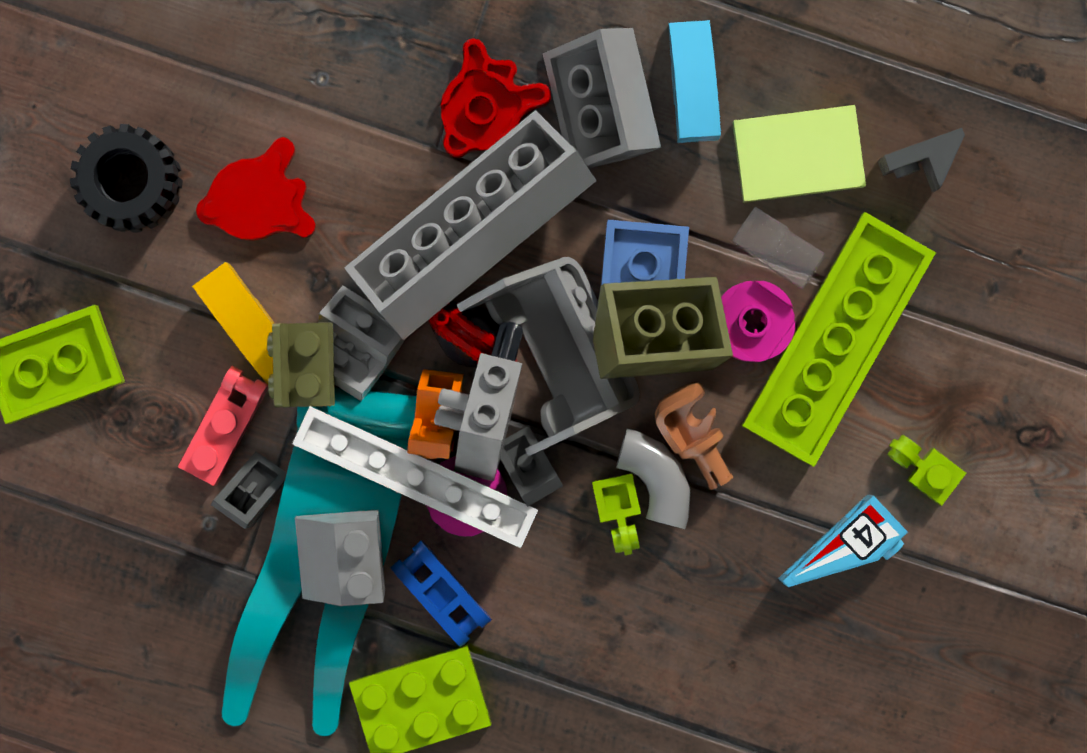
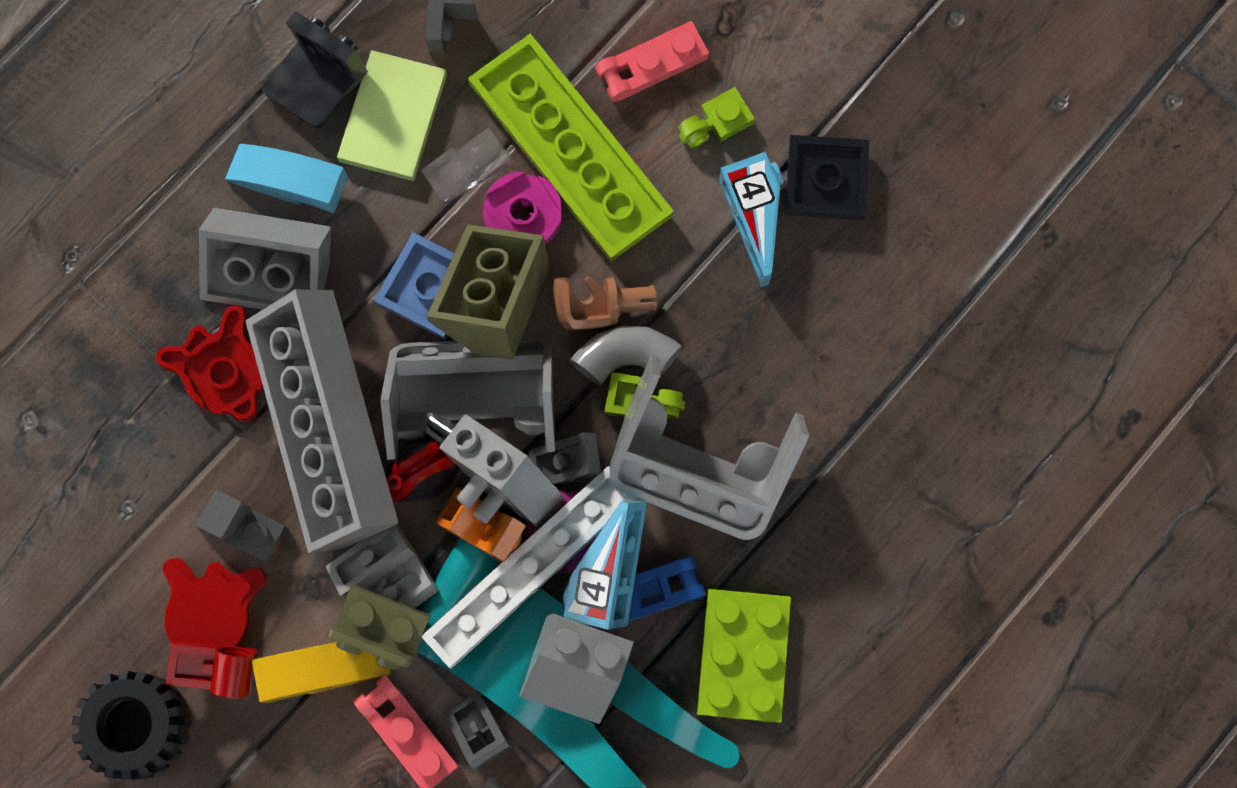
camera: 65 degrees left, 10 degrees down
(207, 228) = (220, 668): none -> red plate
(346, 190) = (241, 526): none -> dark grey slope
(427, 551) = (605, 577): none -> medium azure slope
(558, 601) = (694, 483): none -> light grey windscreen
(806, 62) = (315, 72): none -> black bracket
(911, 599) = (827, 177): none -> black plate
(960, 382) = (652, 61): none -> coral plate

